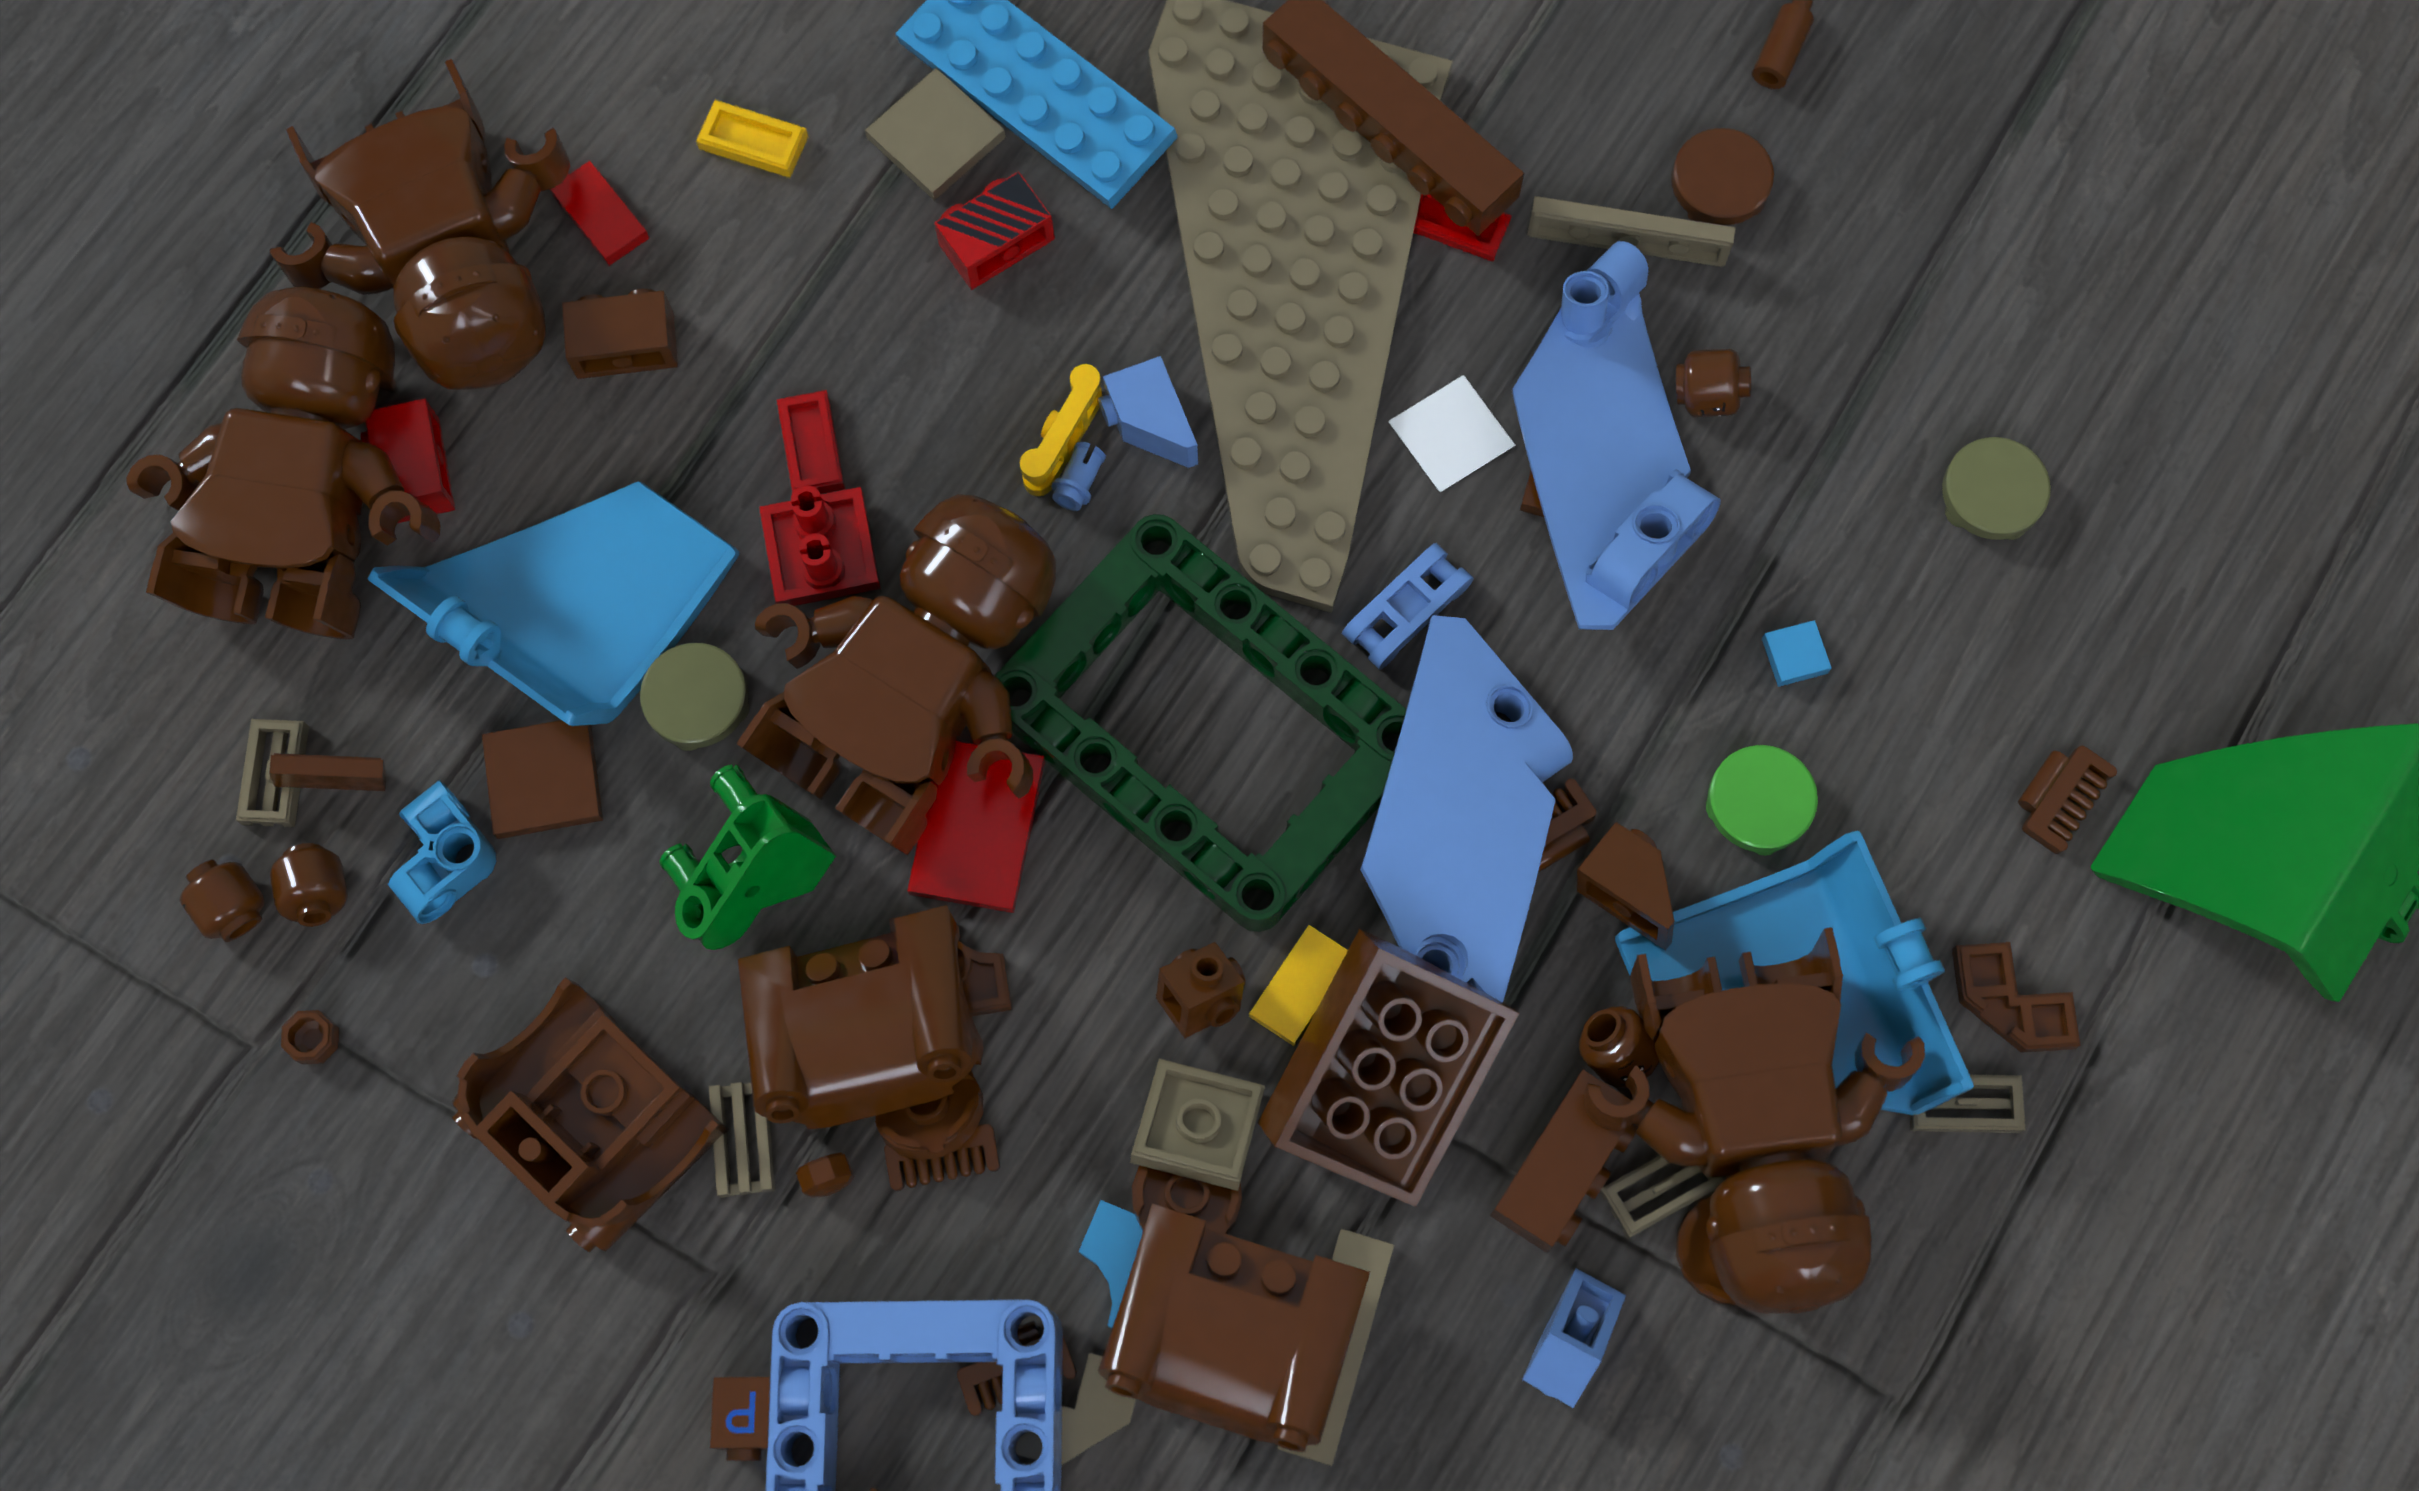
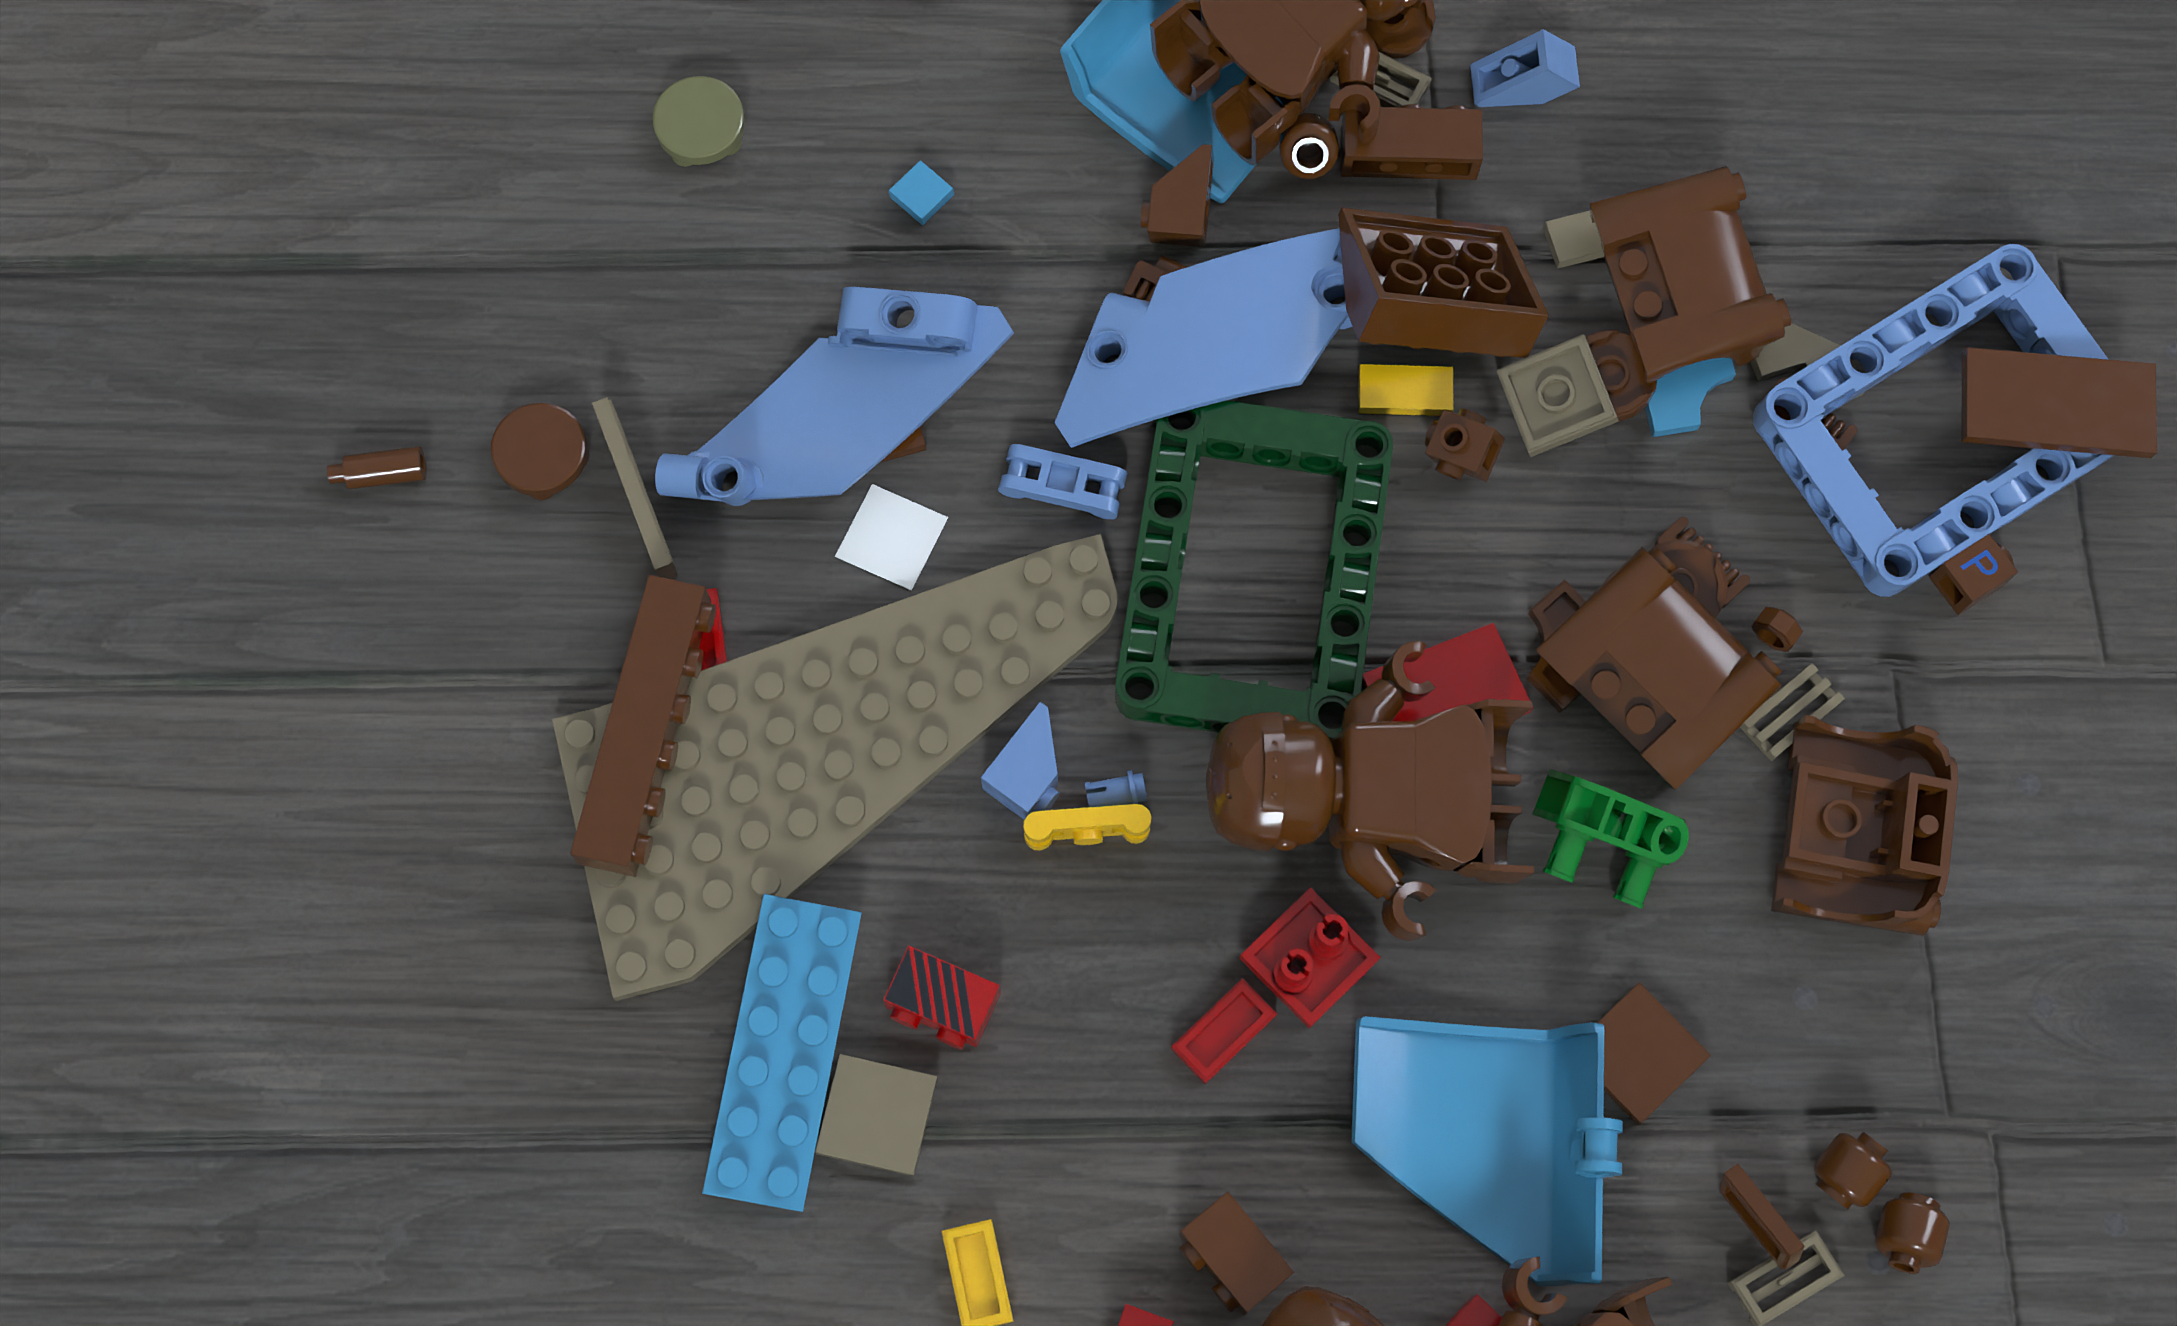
camera: 125 degrees left, 0 degrees up
(310, 1037) = (1957, 1085): reddish brown tile -> none
(432, 878) = (1776, 1076): dark azure piece -> none
(694, 695) = (1495, 974): olive tile -> none
(1712, 383) = (735, 358): reddish brown head -> none
(1762, 799) = (1054, 155): bright green tile -> none

